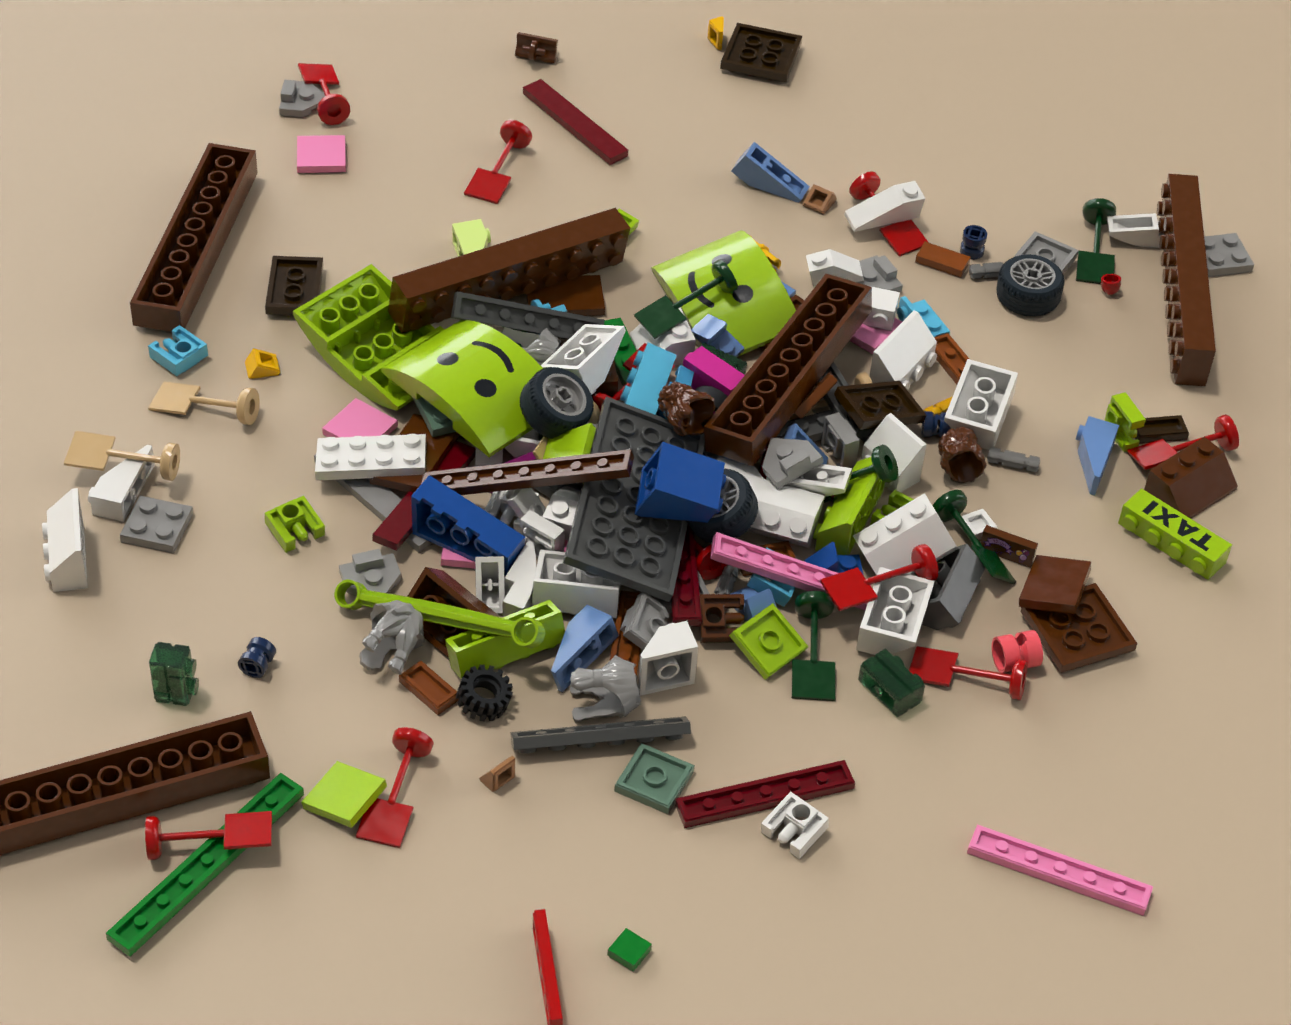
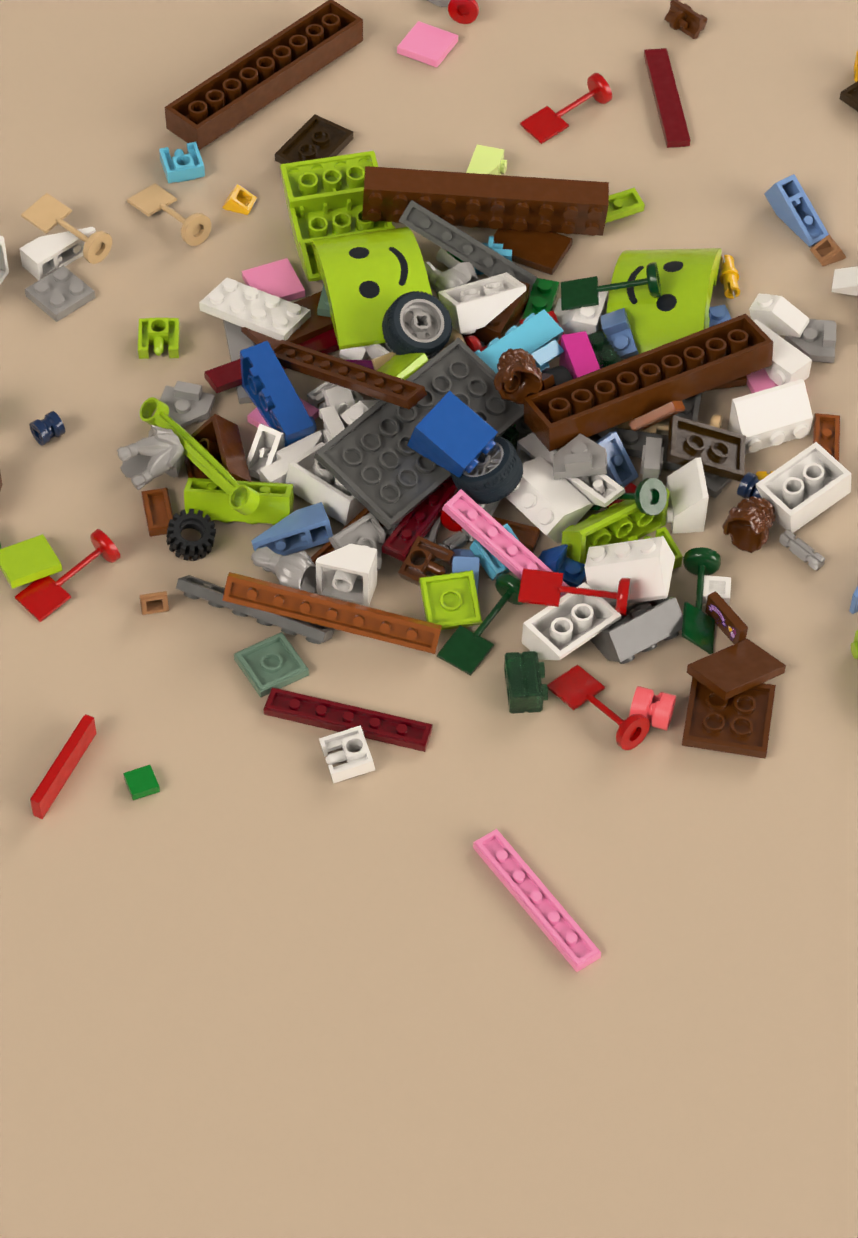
camera: 35 degrees right, 5 degrees up
(680, 701) = (331, 612): none -> dark orange plate
(930, 318) = (826, 393): medium azure bracket -> none

